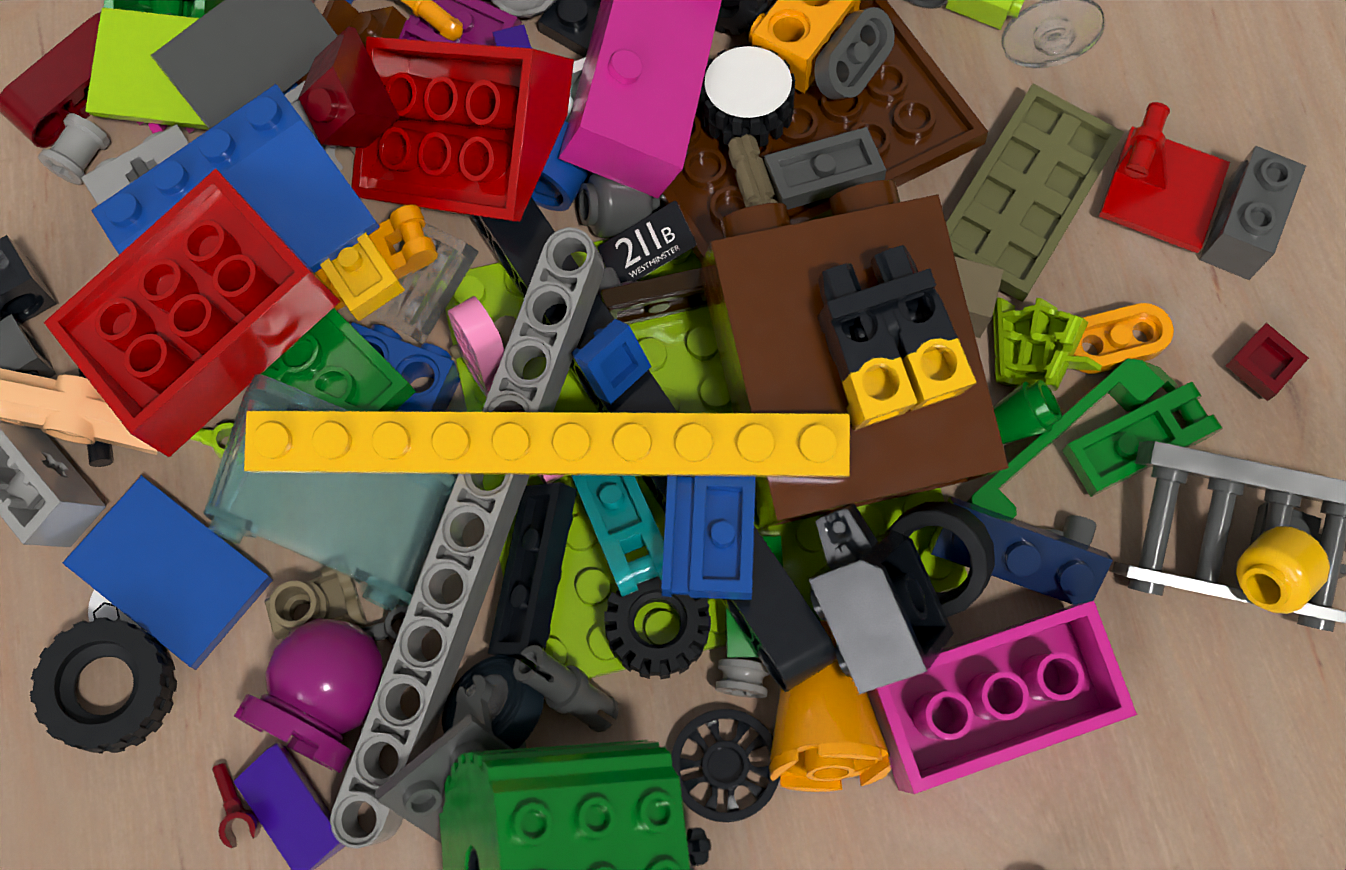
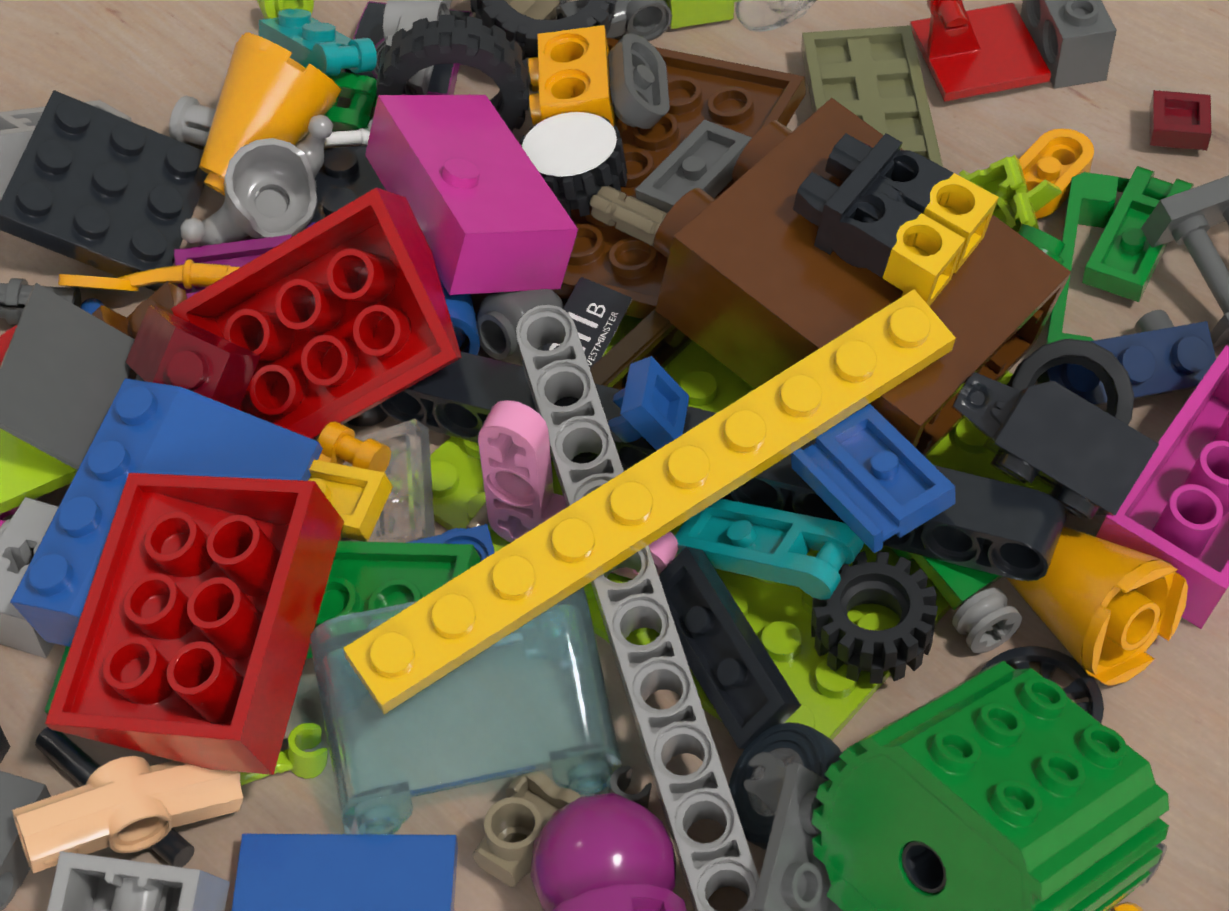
camera: 30 degrees left, 20 degrees down
(565, 688) = (837, 715): dark grey pin -> none

